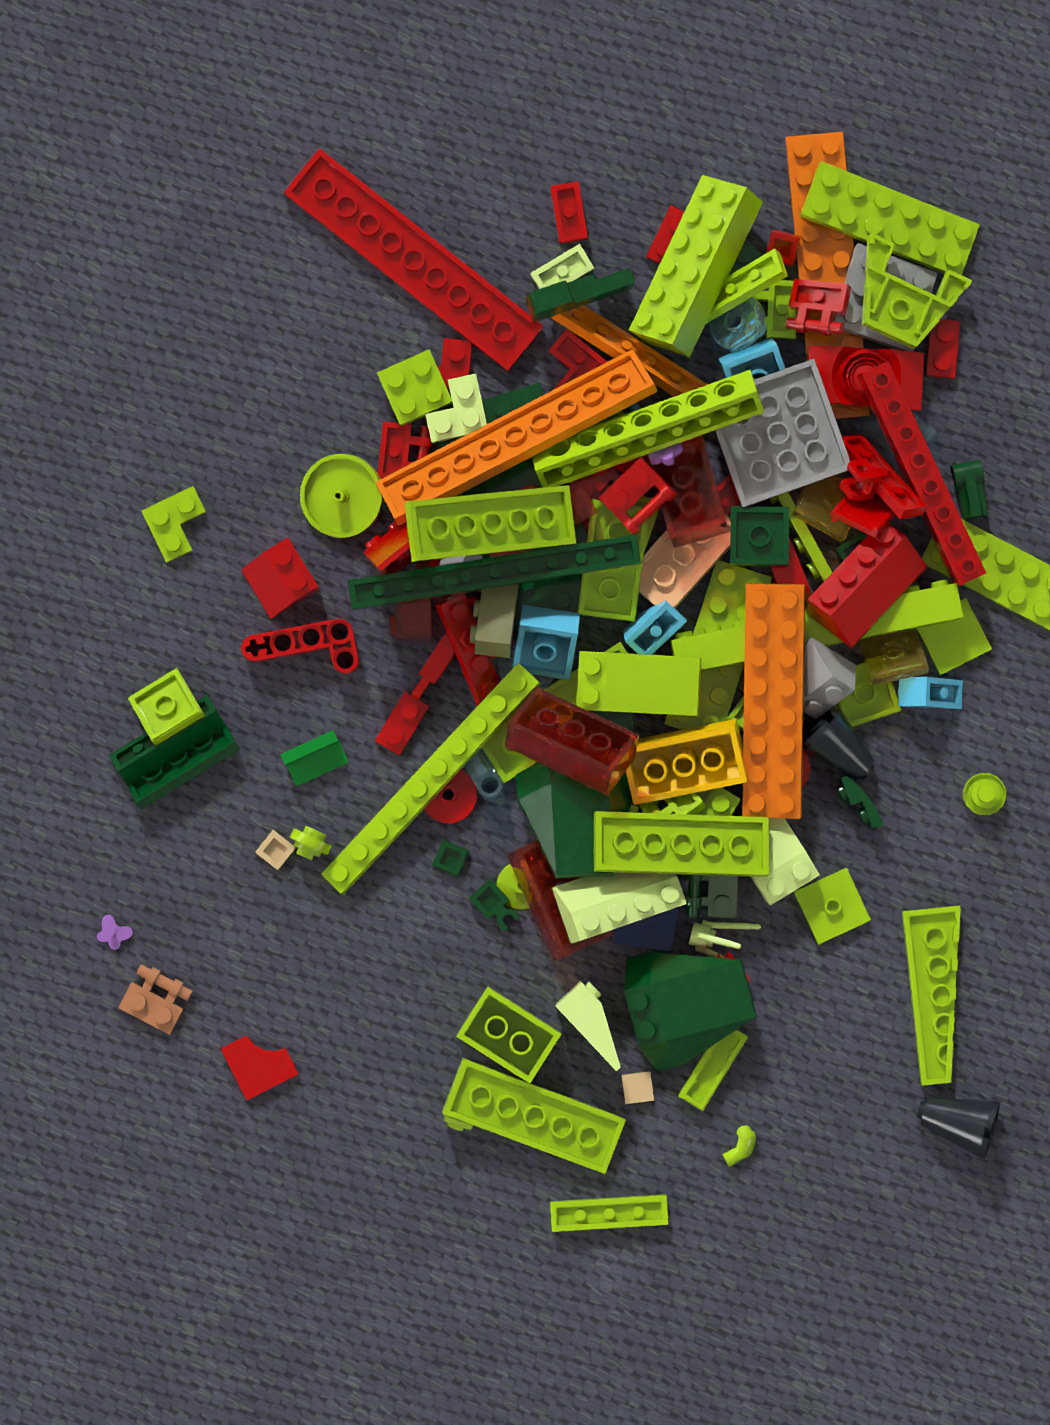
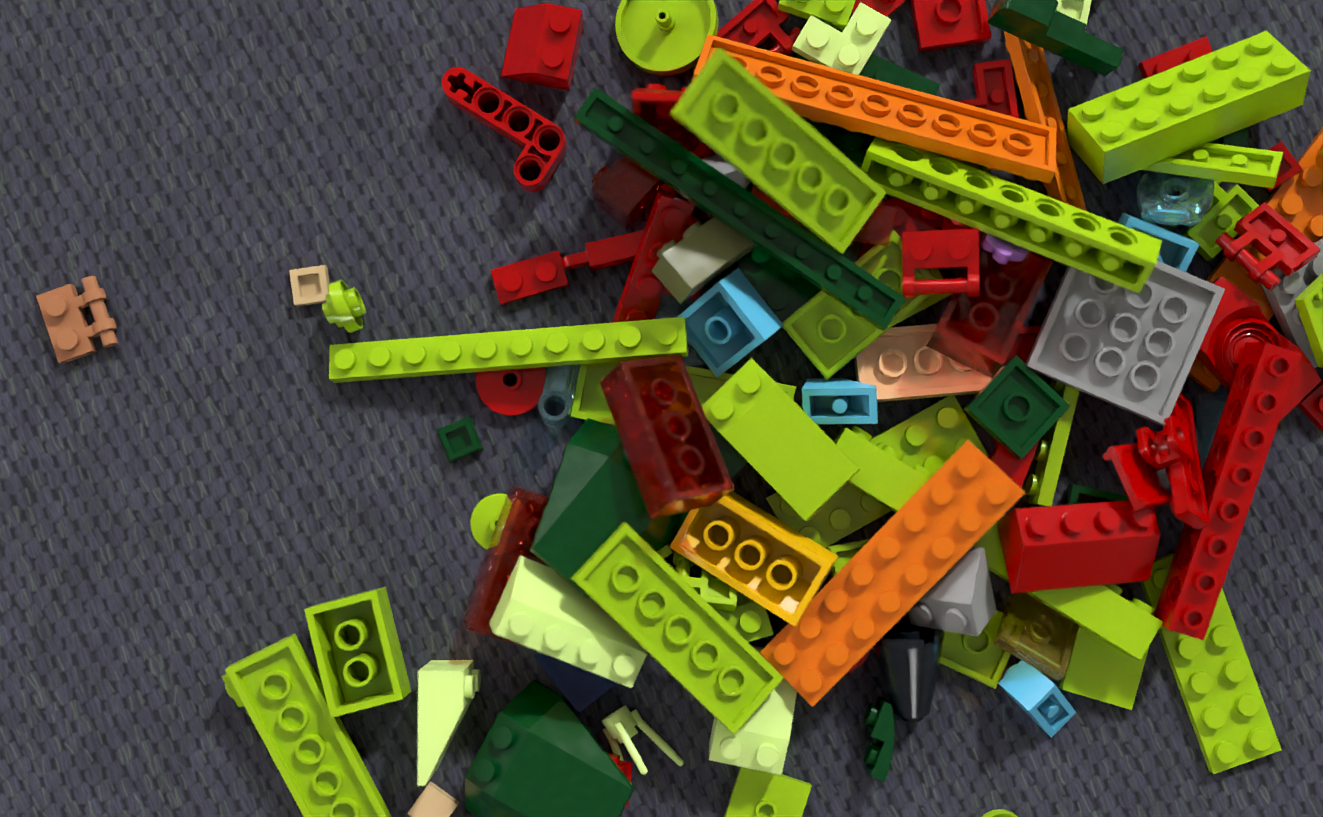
camera: 40 degrees right, 0 degrees up
(113, 933) = (97, 225): medium lavender piece -> none
(159, 769) = (302, 114): dark green slope -> none
(166, 706) = (331, 66): lime plate -> none
(257, 1068) = (109, 466): red tile -> none
(314, 758) = (422, 235): green panel -> none
(491, 901) = (459, 512): dark green plate -> none
(720, 899) = (668, 706): dark green plate -> none
(816, 504) = (1094, 431): clear yellow plate -> none
(969, 485) = (1257, 536): dark green piece -> none

